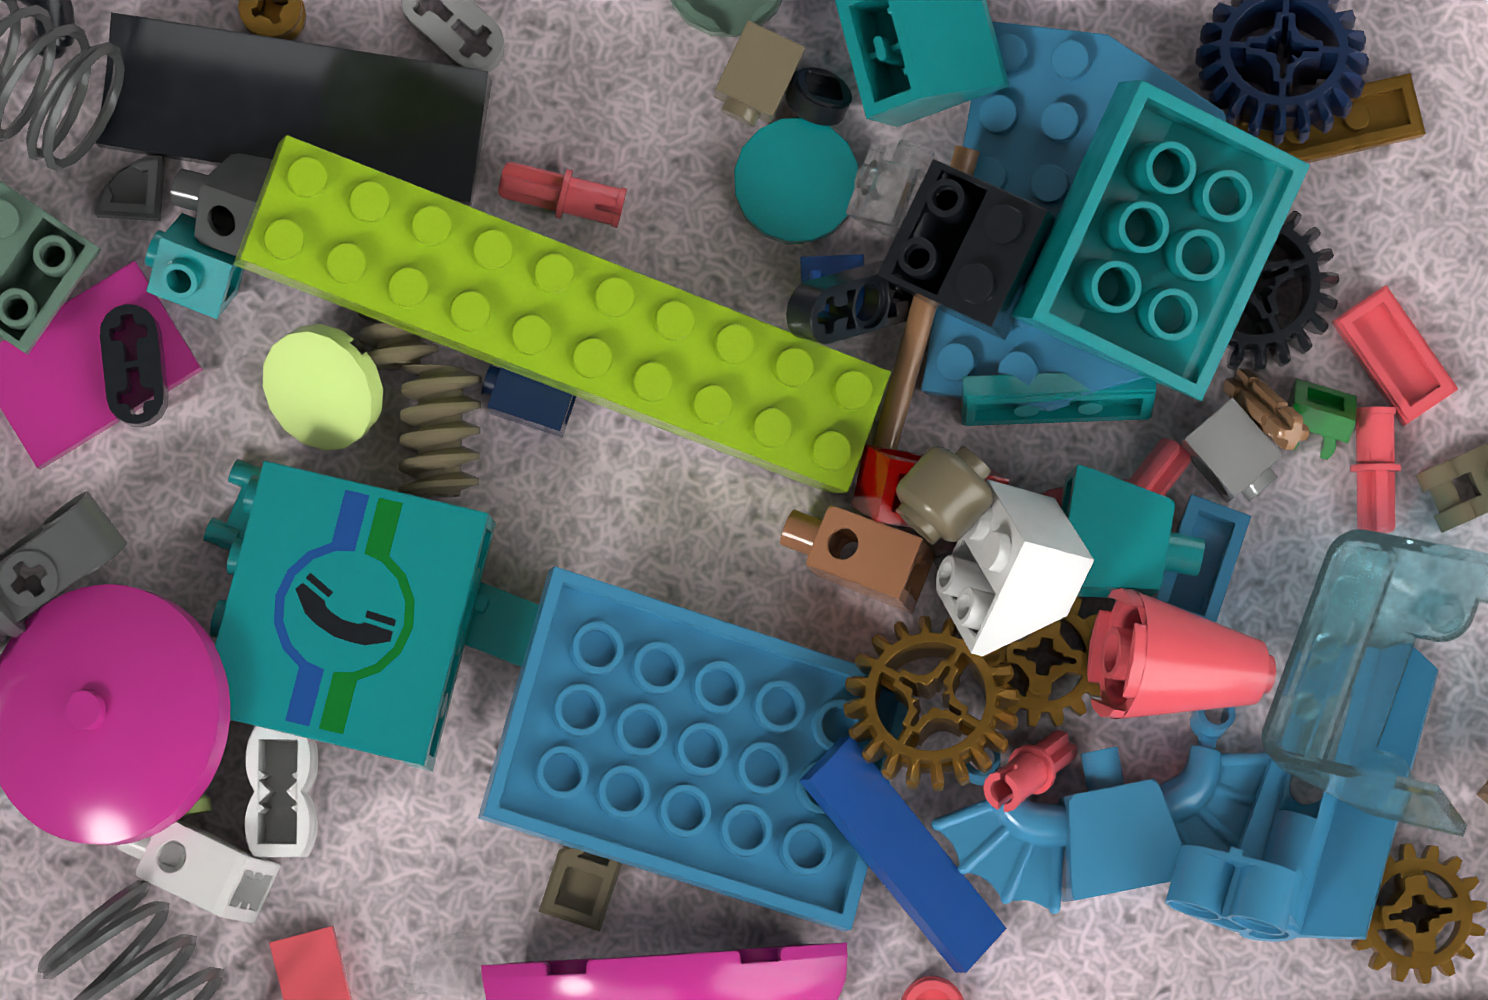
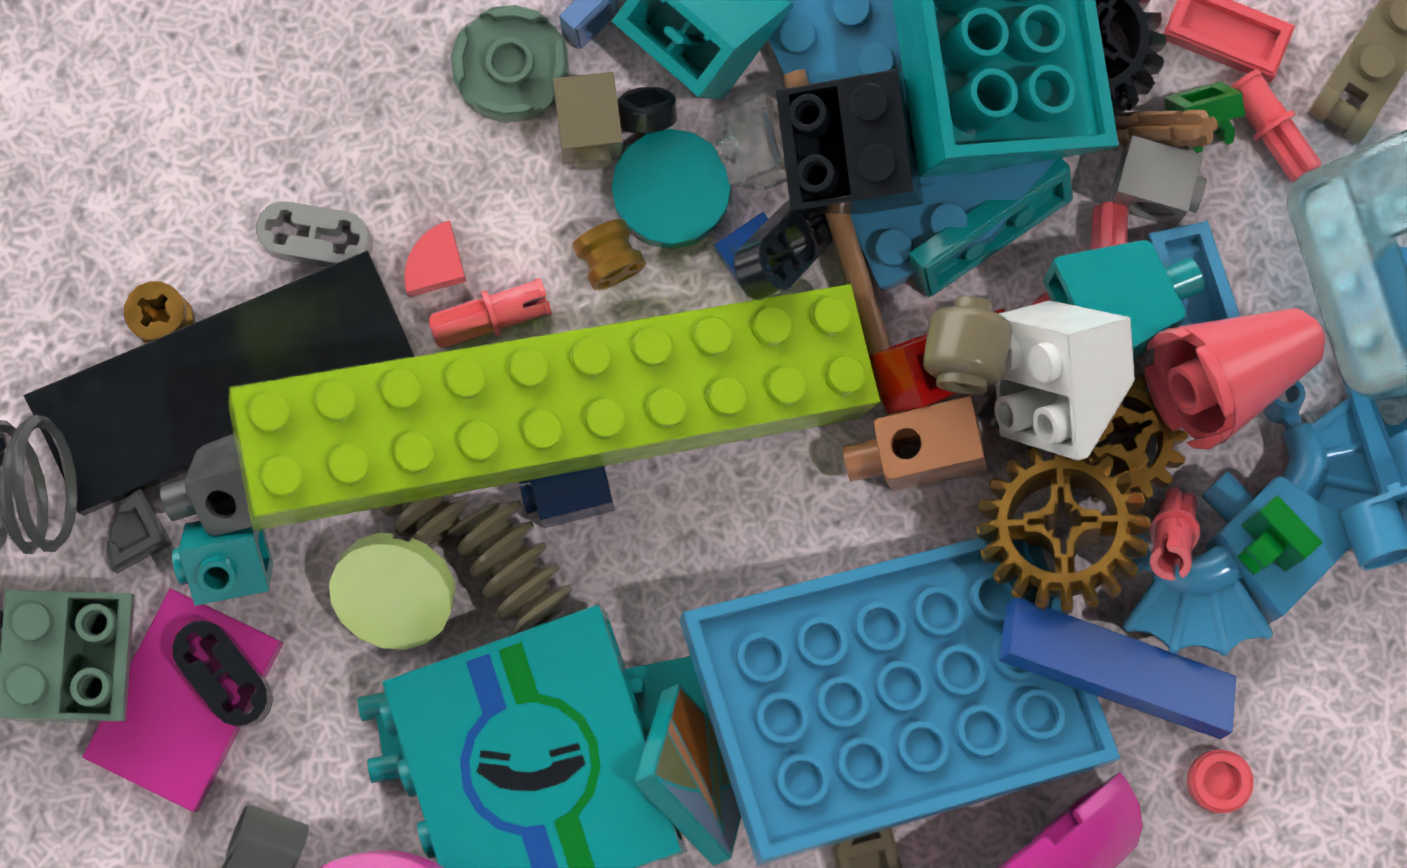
camera: 30 degrees left, 5 degrees down
(469, 705) = (688, 776): none -> tile
(544, 114) = (434, 262): none -> coral tile
(700, 207) = (609, 254): none -> pearl gold wheel
(1110, 830) = (1277, 537): none -> green tile

